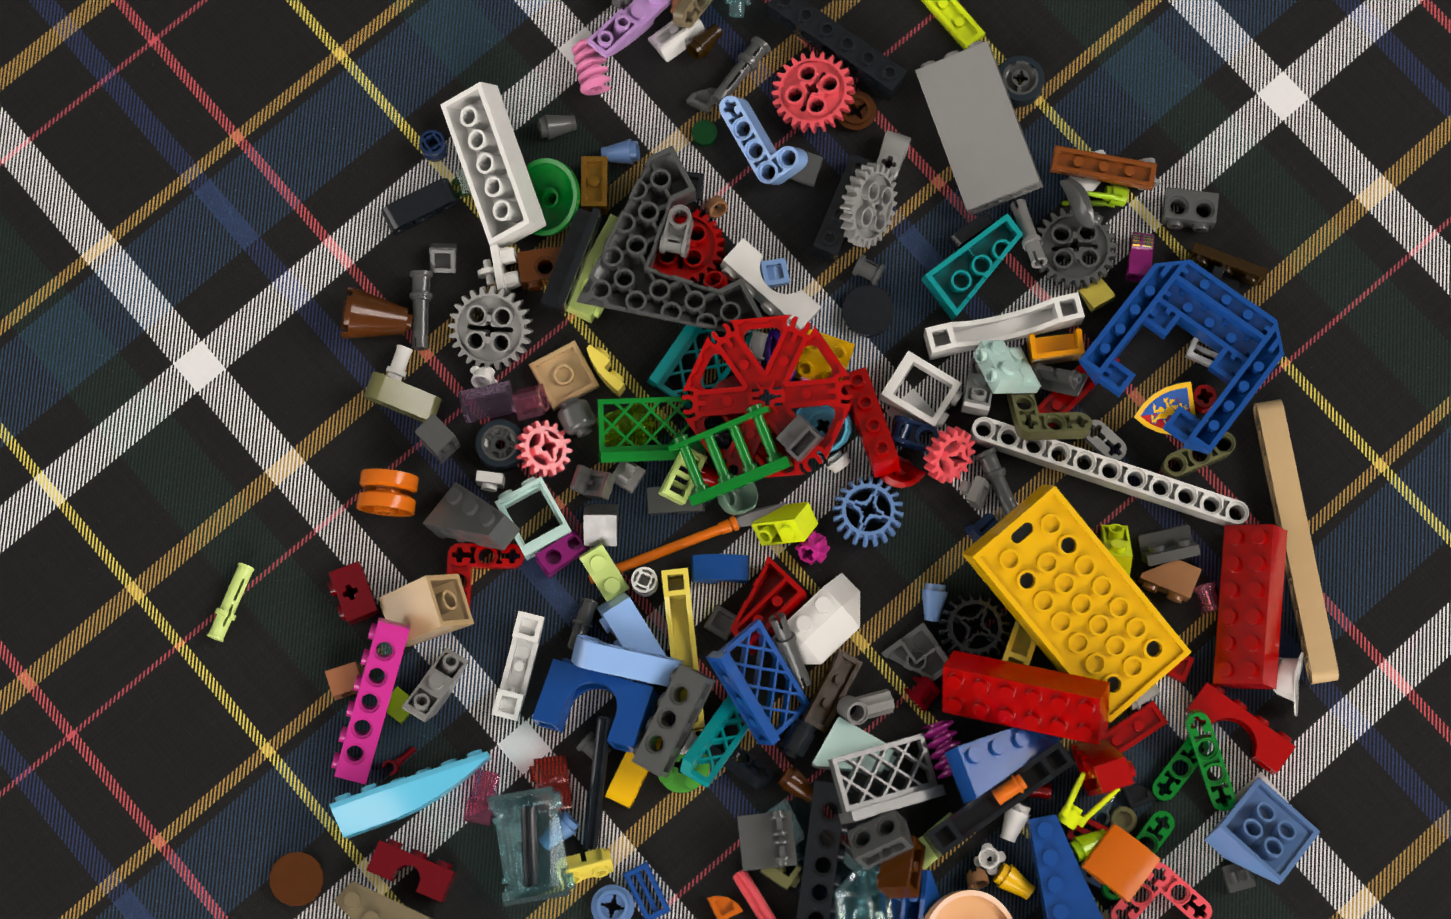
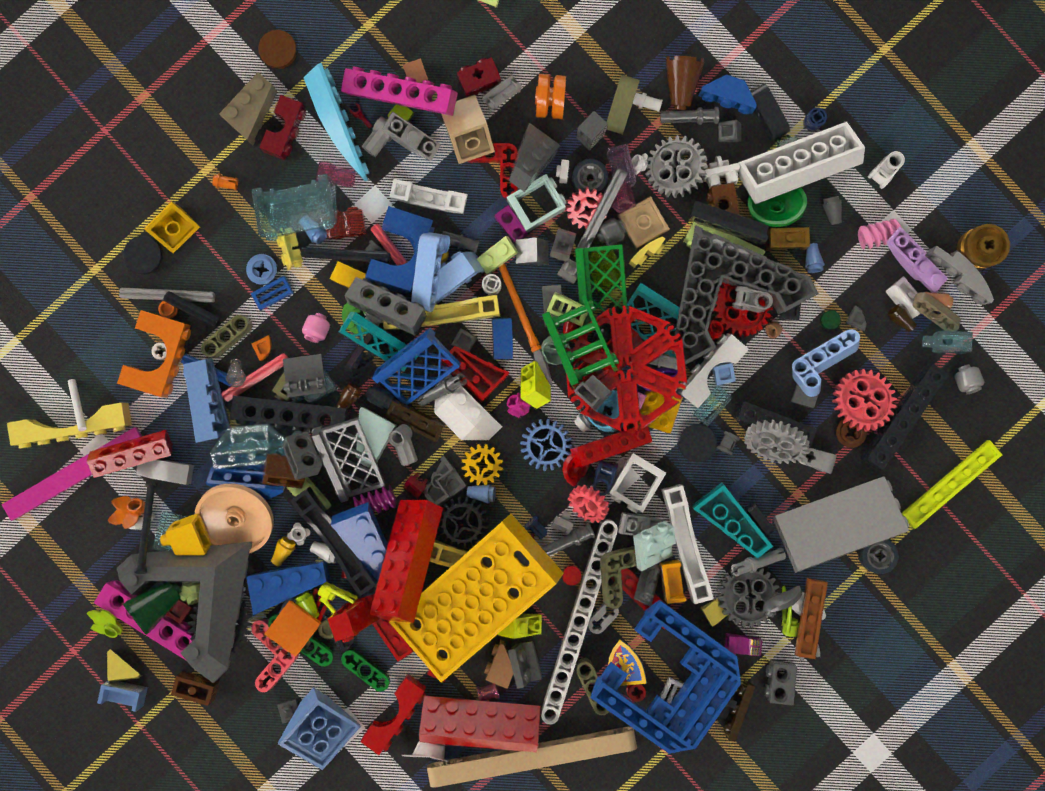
camera: 90 degrees right, 10 degrees up
(380, 567) = (501, 92): none -> light grey hinge
(392, 255) = (729, 93): none -> blue slope
(431, 735) = (377, 138): none -> light grey piece
(507, 59) = (885, 170): none -> white piece
(529, 846) = (298, 207): black axle -> none
(549, 426) = (602, 208): none -> axle
(585, 724) = (388, 245): none -> coral axle
(699, 828) = (315, 328): none -> bright pink head
(749, 64) = (887, 350): dark grey pin -> none
(798, 286) = (718, 410): none -> clear light blue tile
(906, 601) = (473, 462): none -> yellow gear
(977, 879) = (283, 525): medium nougat hinge -> none
(1009, 789) = (341, 549): orange pin -> none
(1047, 477) = (571, 575): none -> red tile
(1212, 759) = (369, 693): green beam -> none

